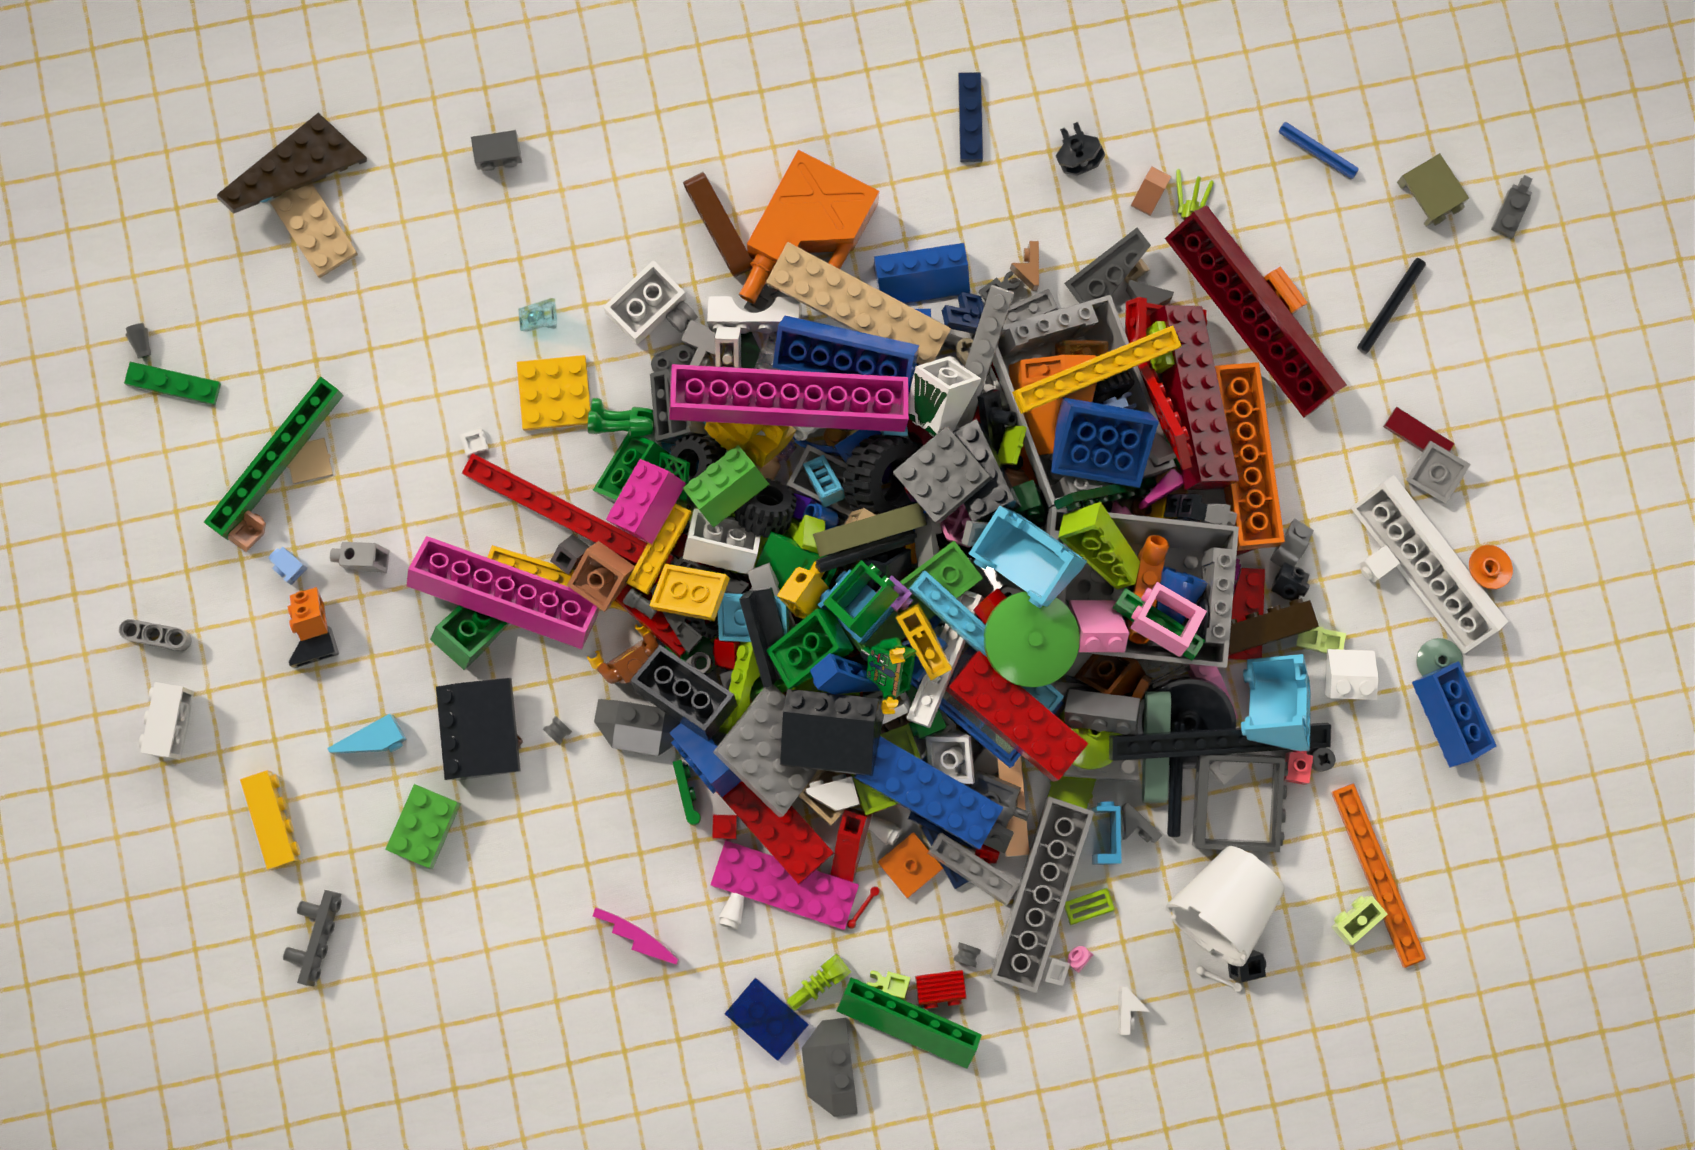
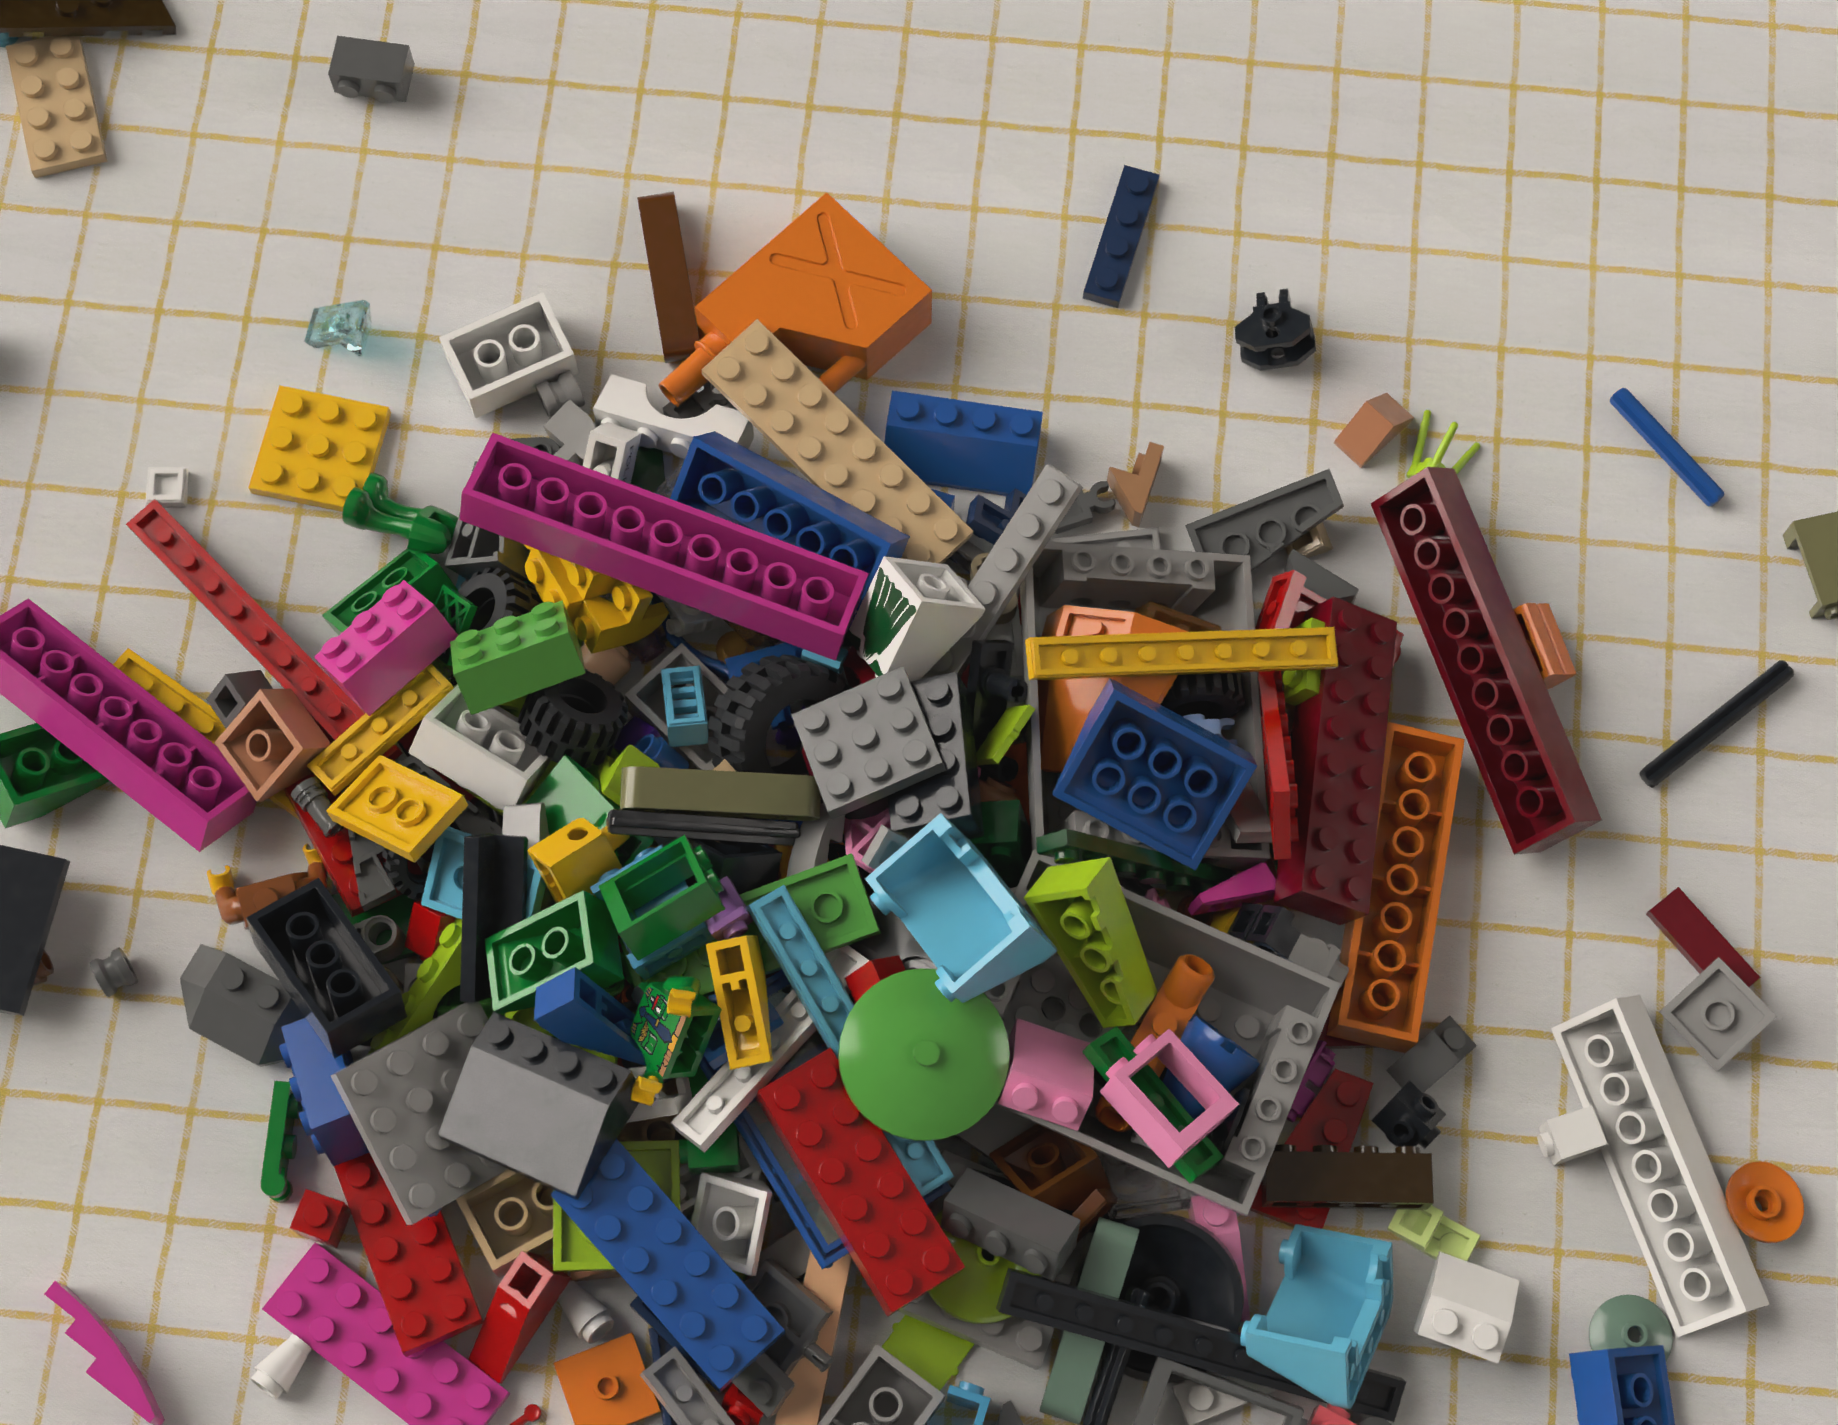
camera: 25 degrees right, 10 degrees down
(836, 794) = (518, 1220): white slope -> none

